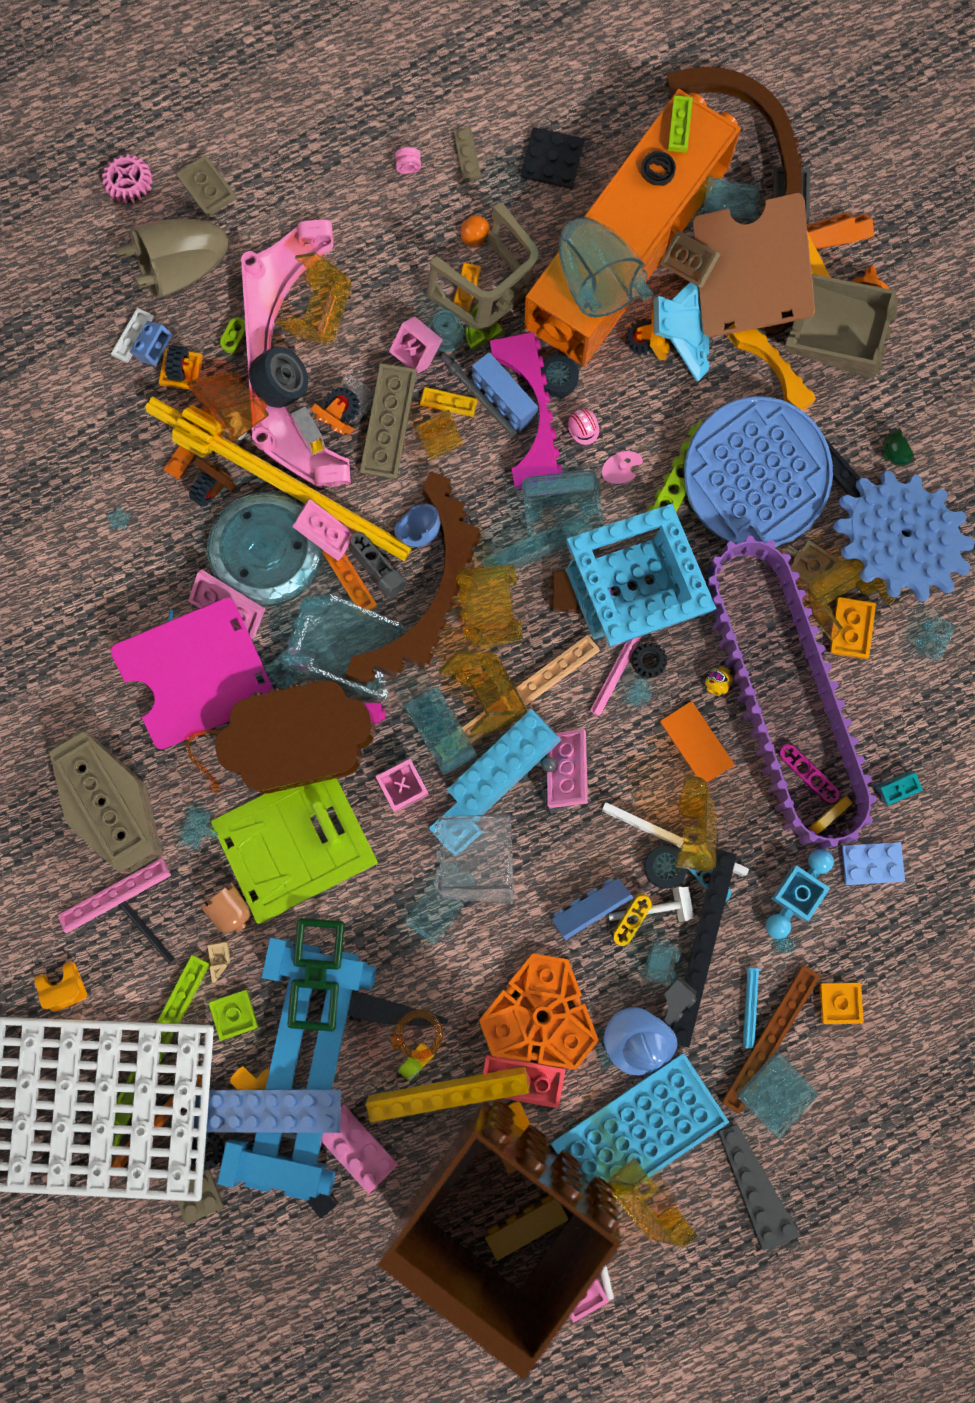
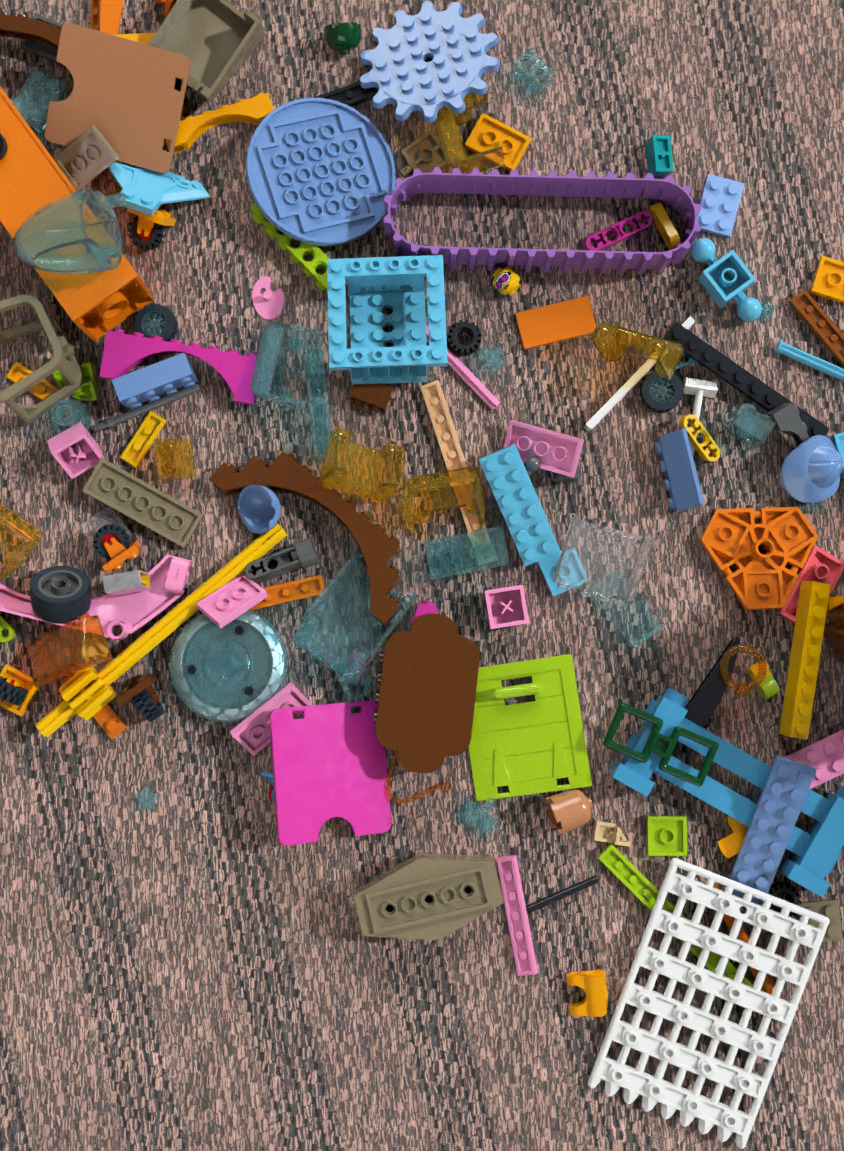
camera: 70 degrees left, 5 degrees up
(583, 425) = (214, 318): bright pink helmet -> none

